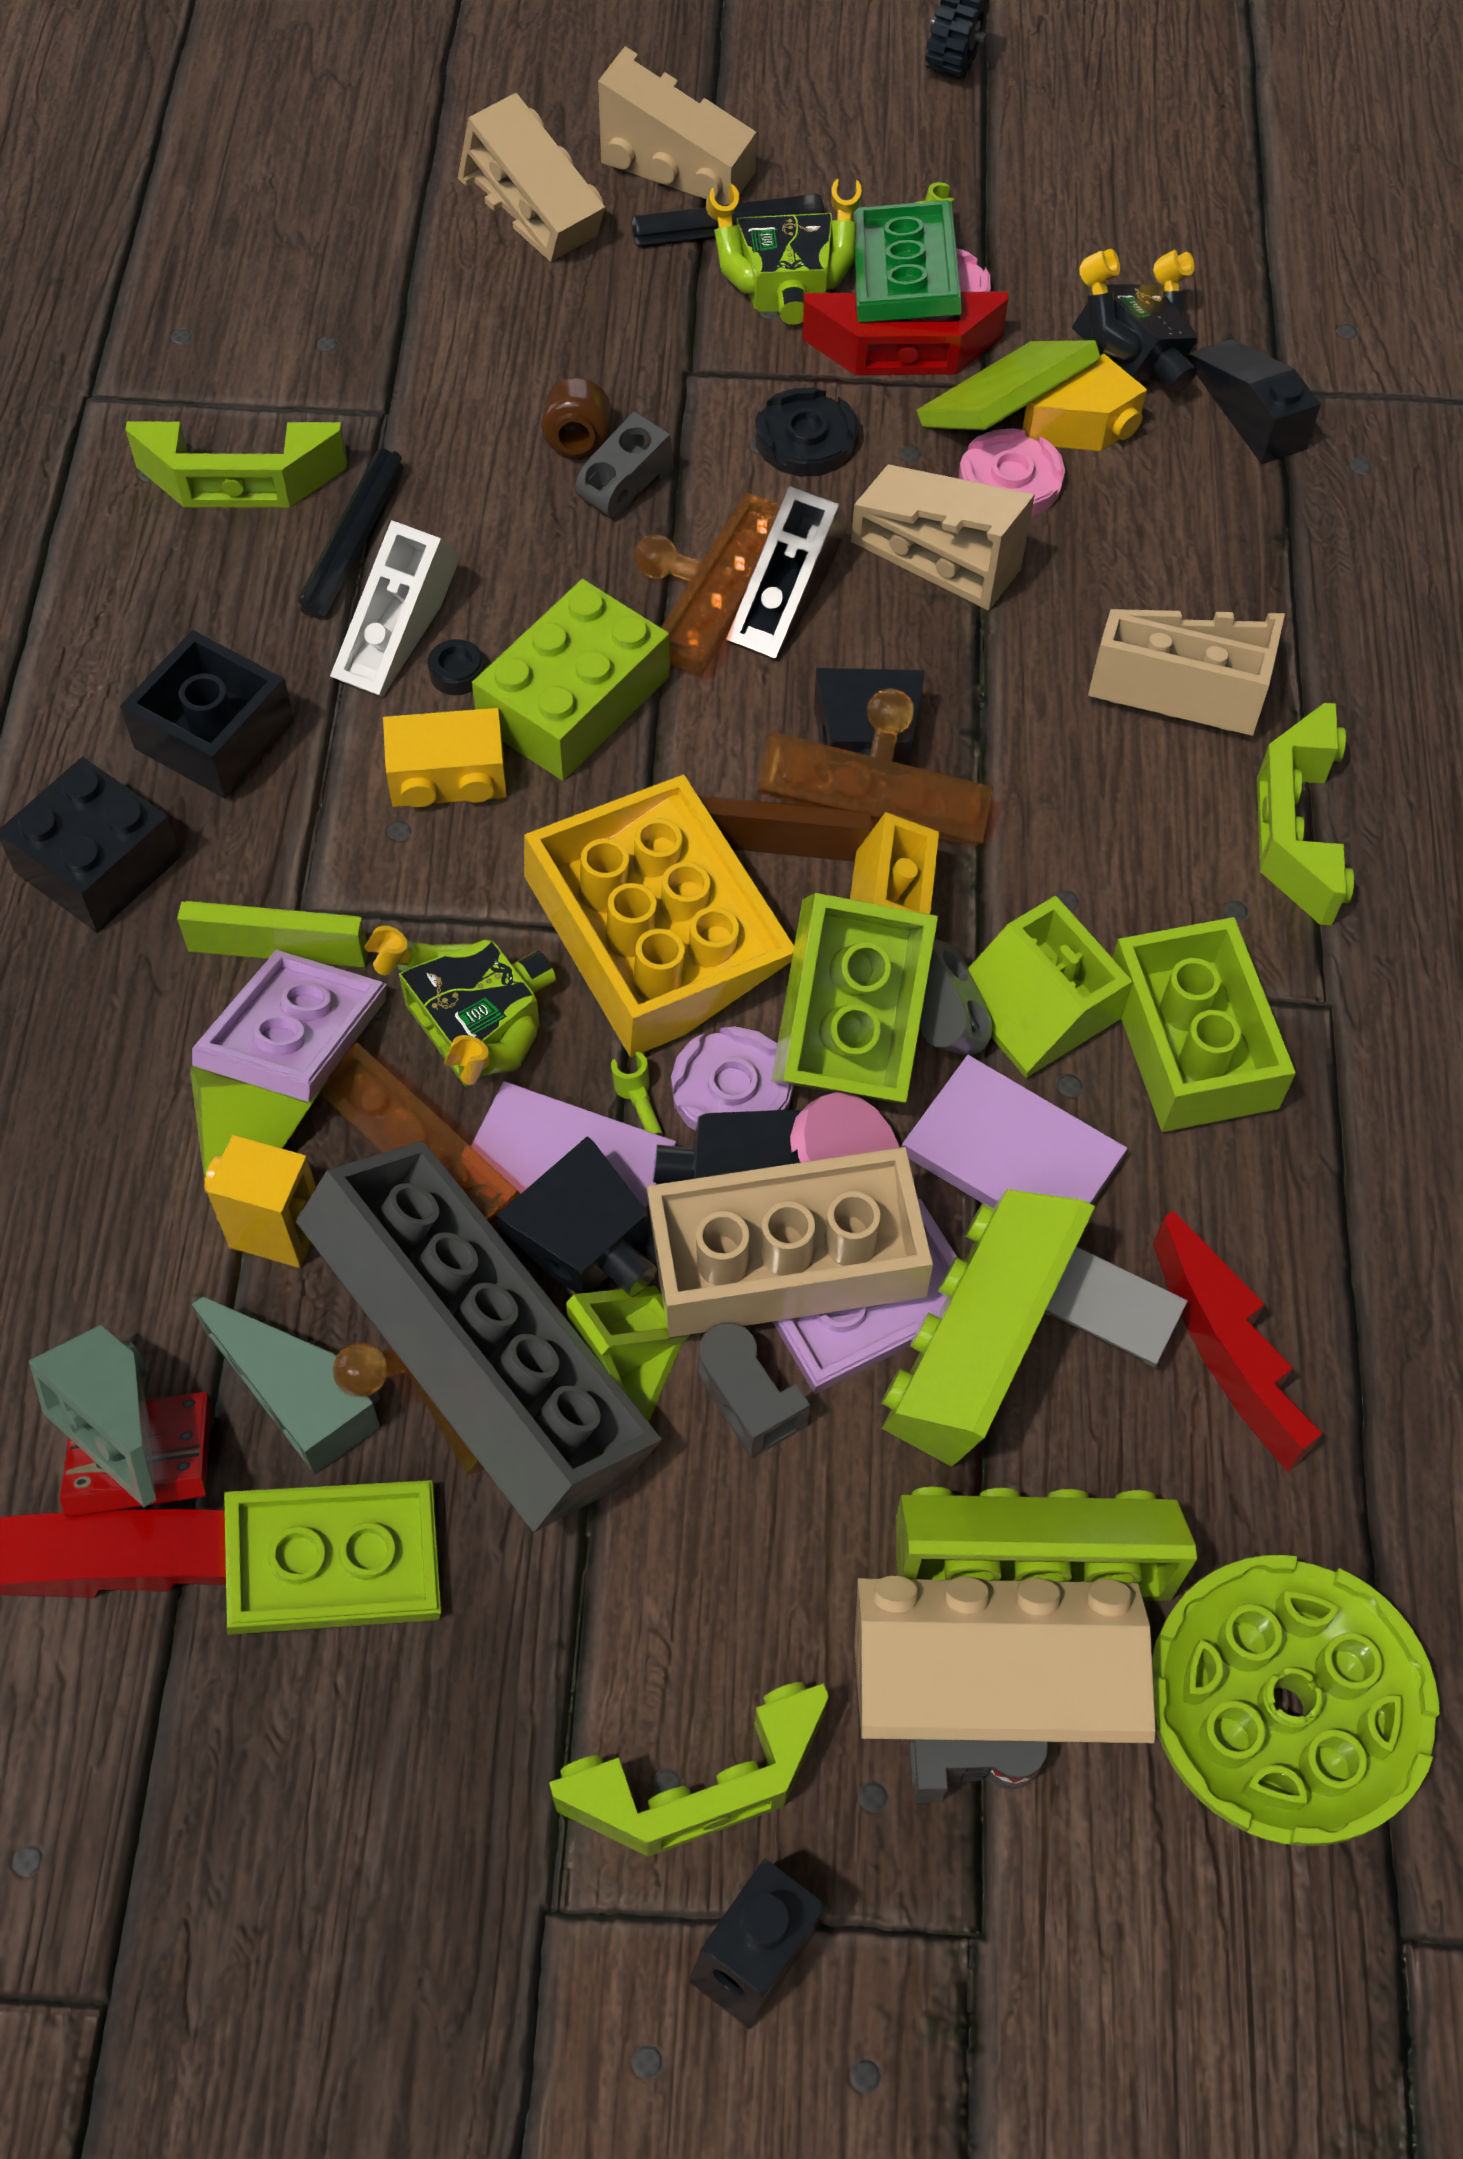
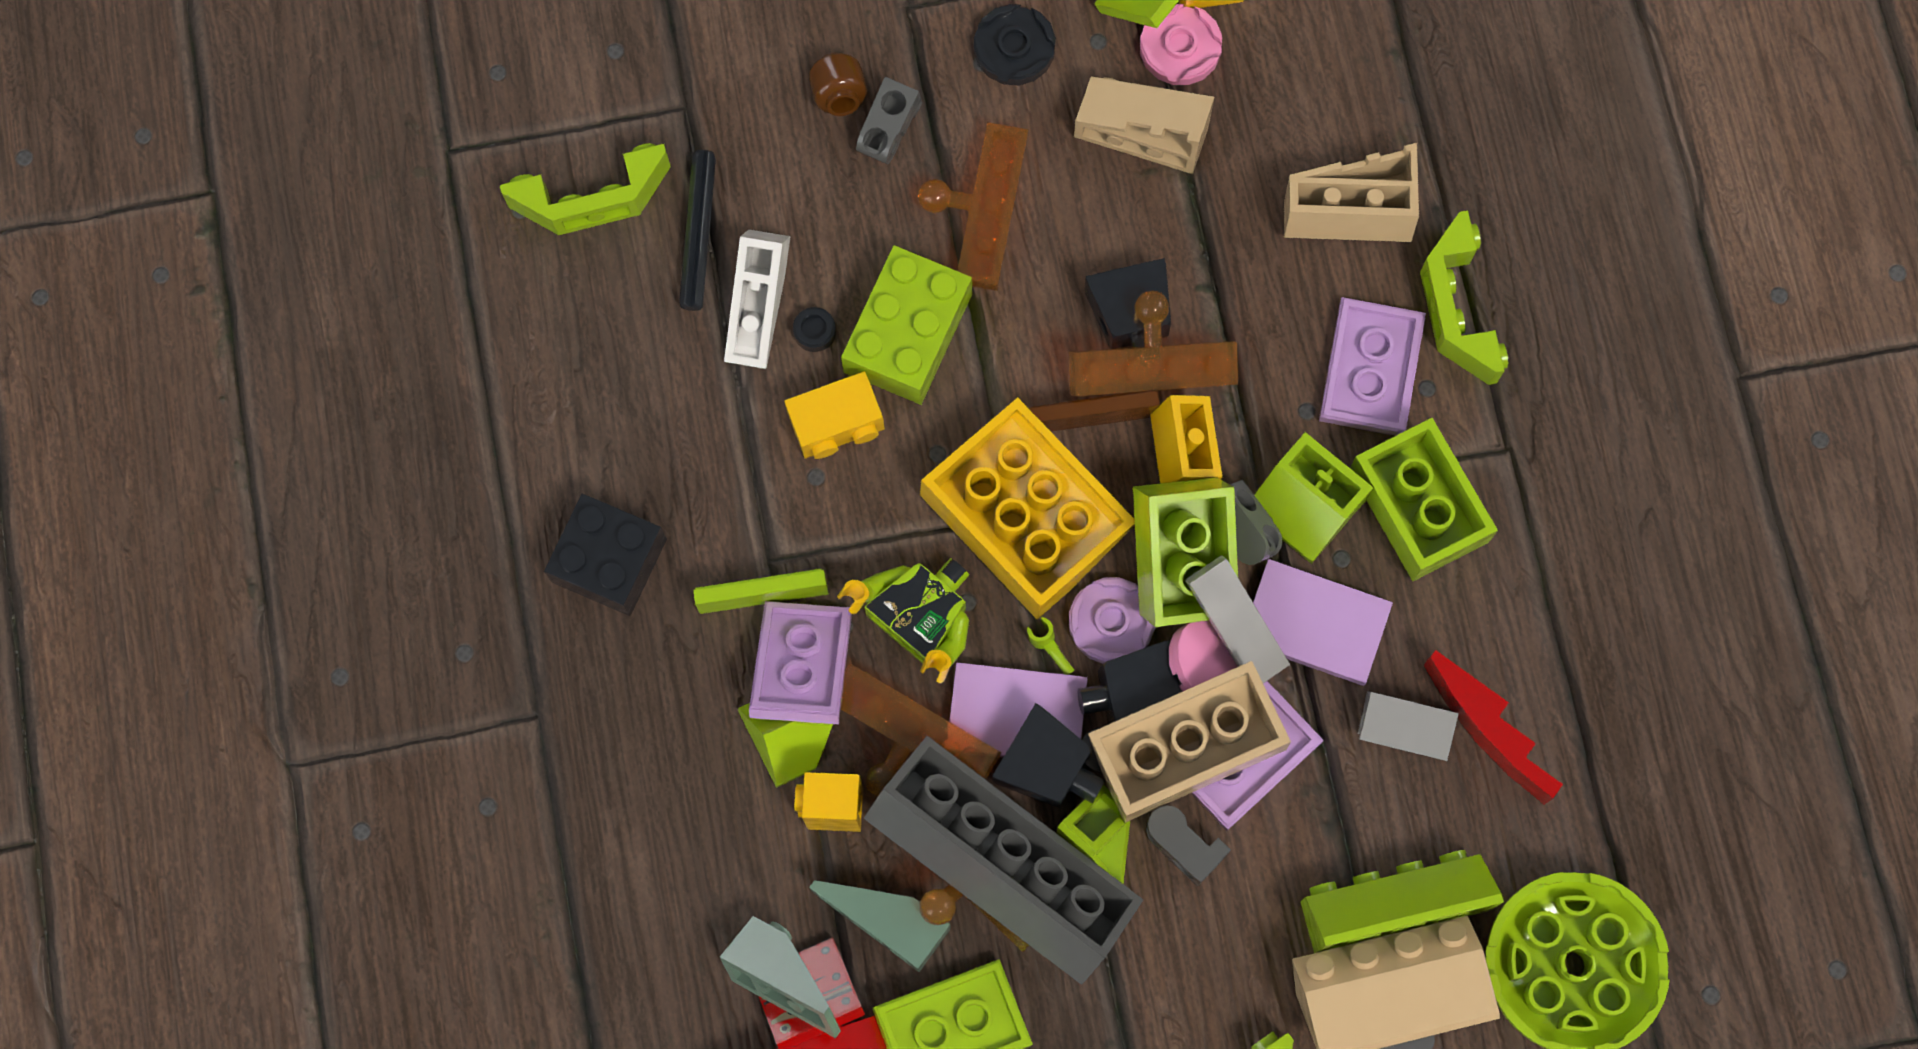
camera: 10 degrees left, 15 degrees up
(208, 713) = (653, 427): black brick -> none
(788, 572) = (1038, 191): slope -> none
(901, 1097) = (1236, 618): none -> light grey tile
(984, 1323) = (1331, 763): lime slope -> none
(1166, 862) = (1372, 367): none -> lavender tile

